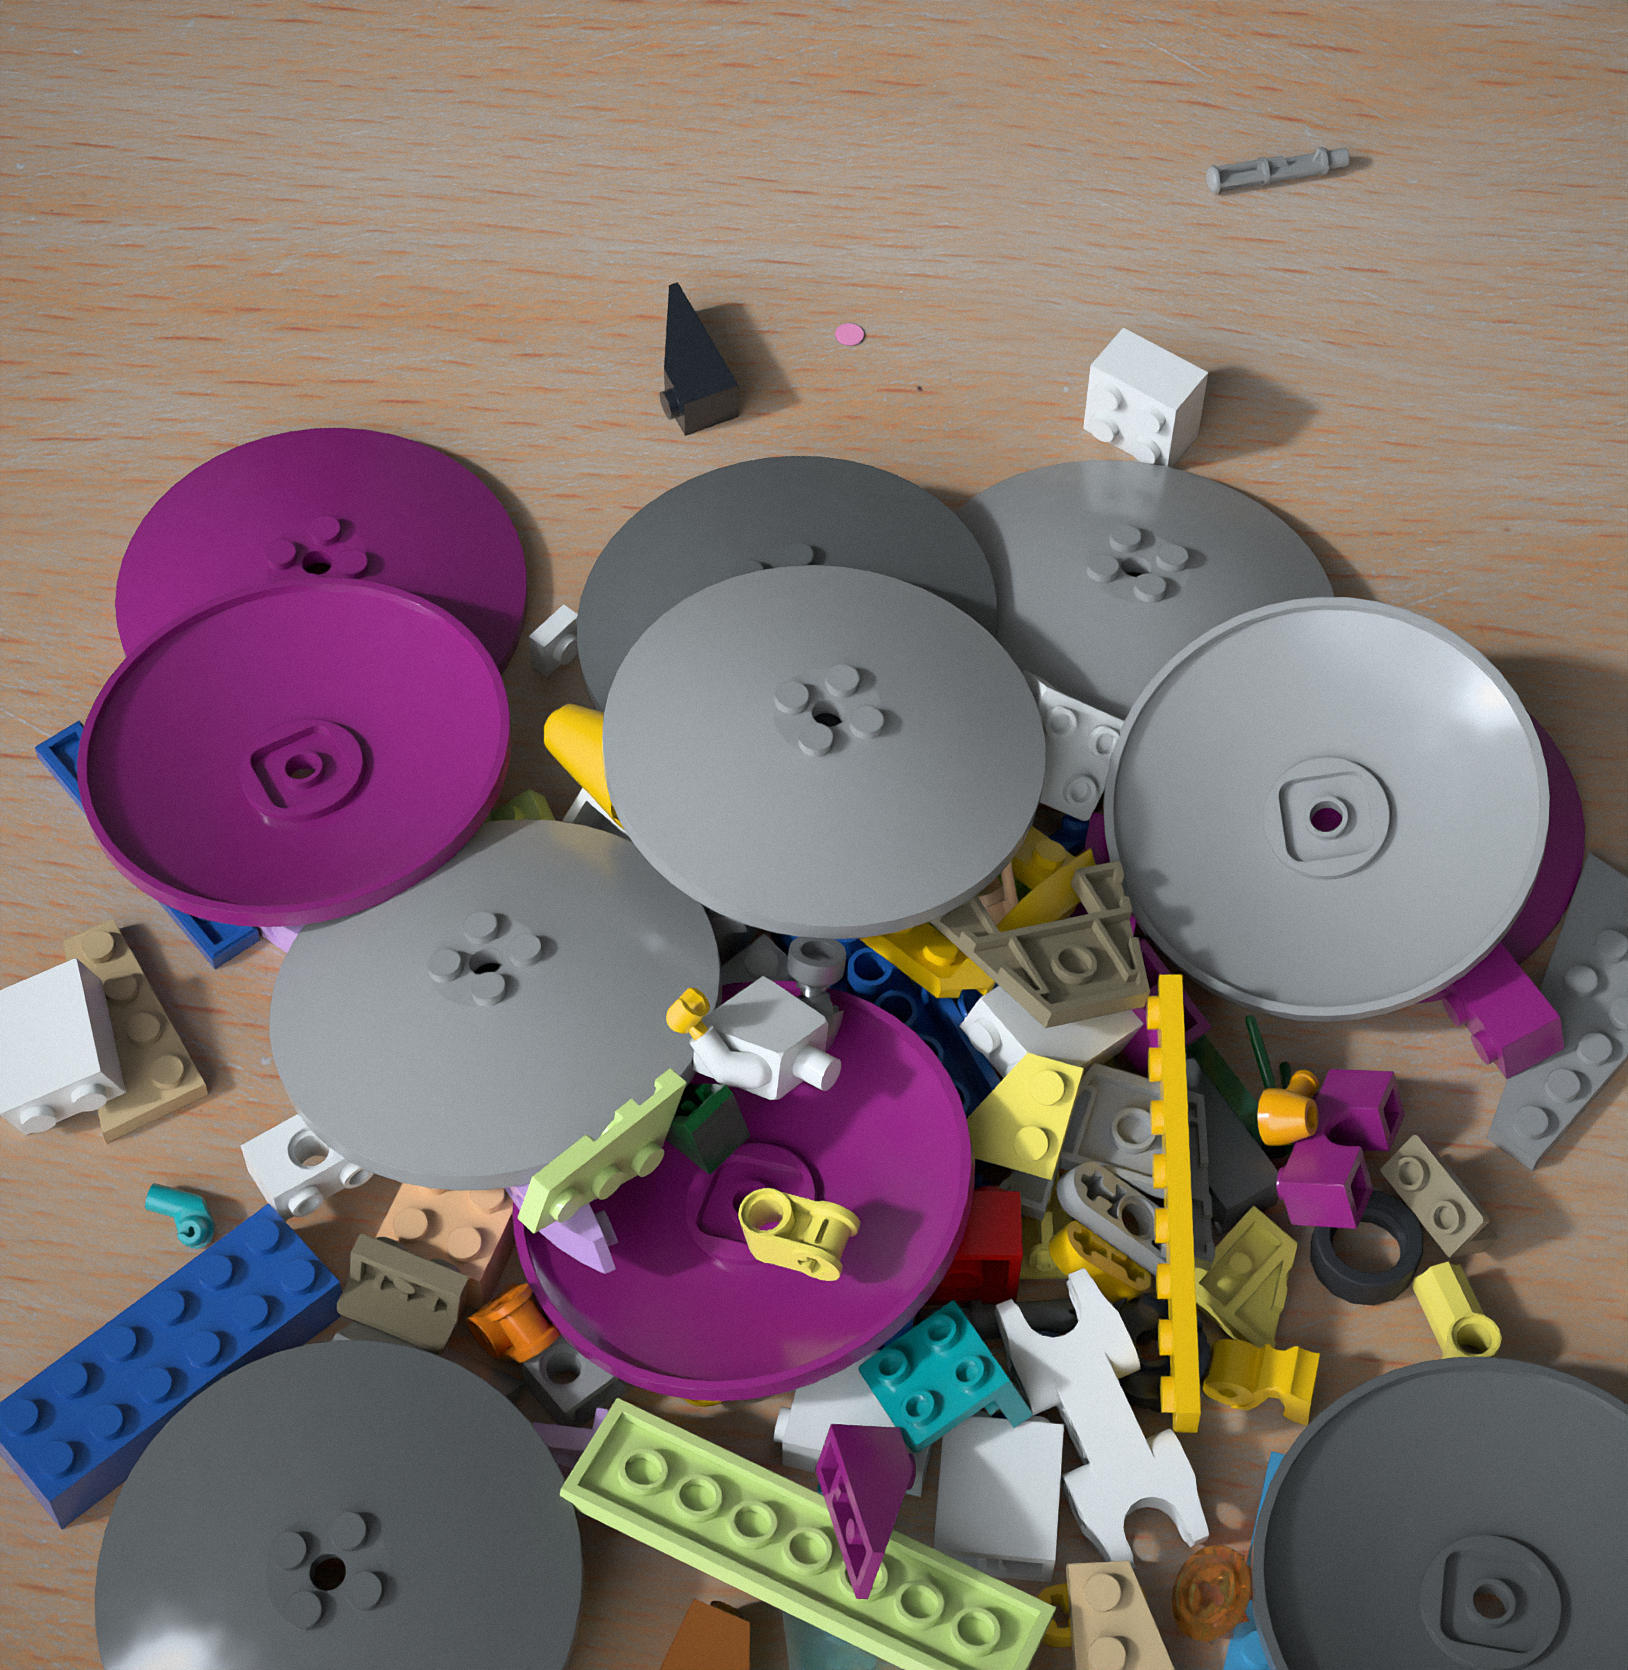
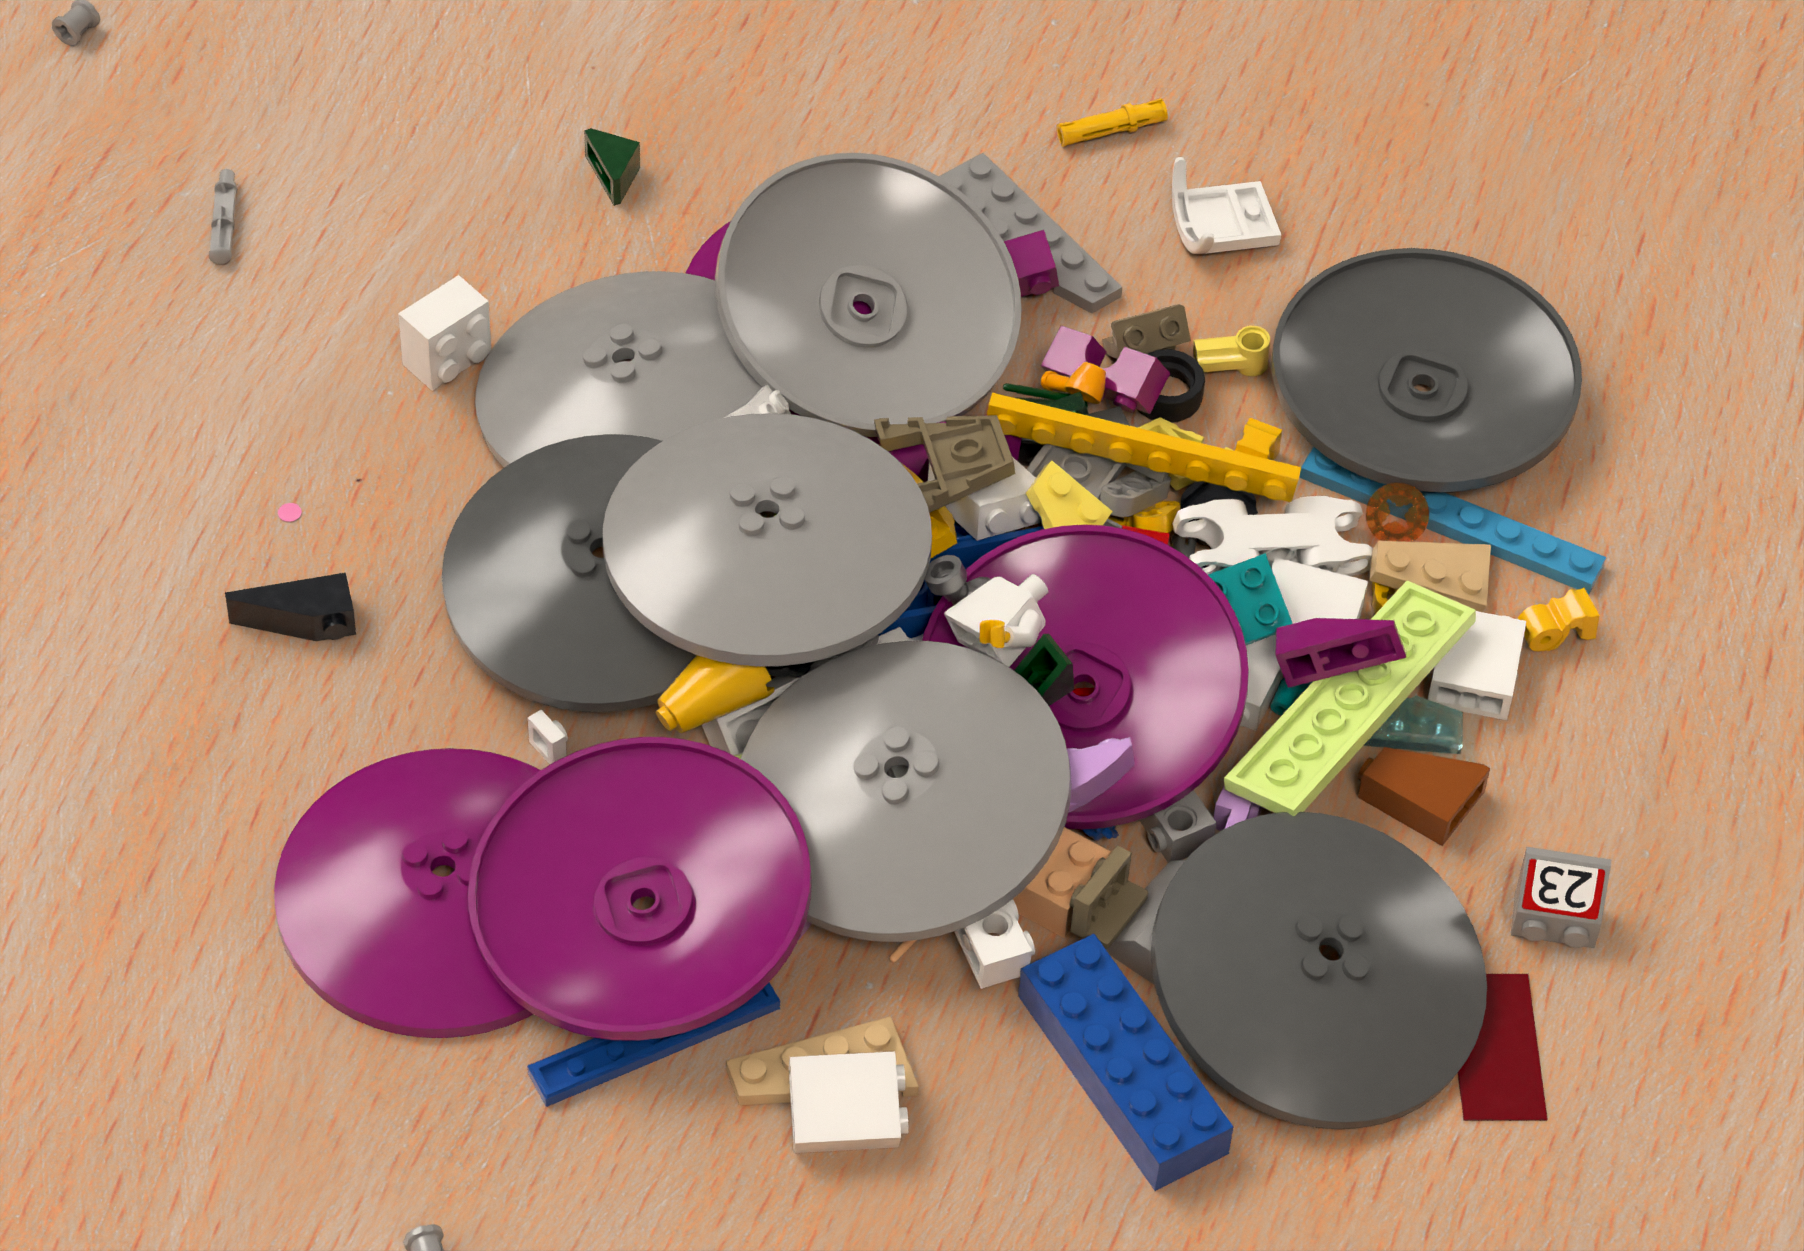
camera: 80 degrees left, 5 degrees down
(189, 1213) = (995, 1042): teal arm -> none
(512, 1326) = (1146, 838): orange piece -> none
(597, 1168) = (1079, 716): yellowish green wing -> none
(808, 1235) = (1154, 625): light yellow piece -> none
(1513, 526) = (613, 161): none -> dark green slope

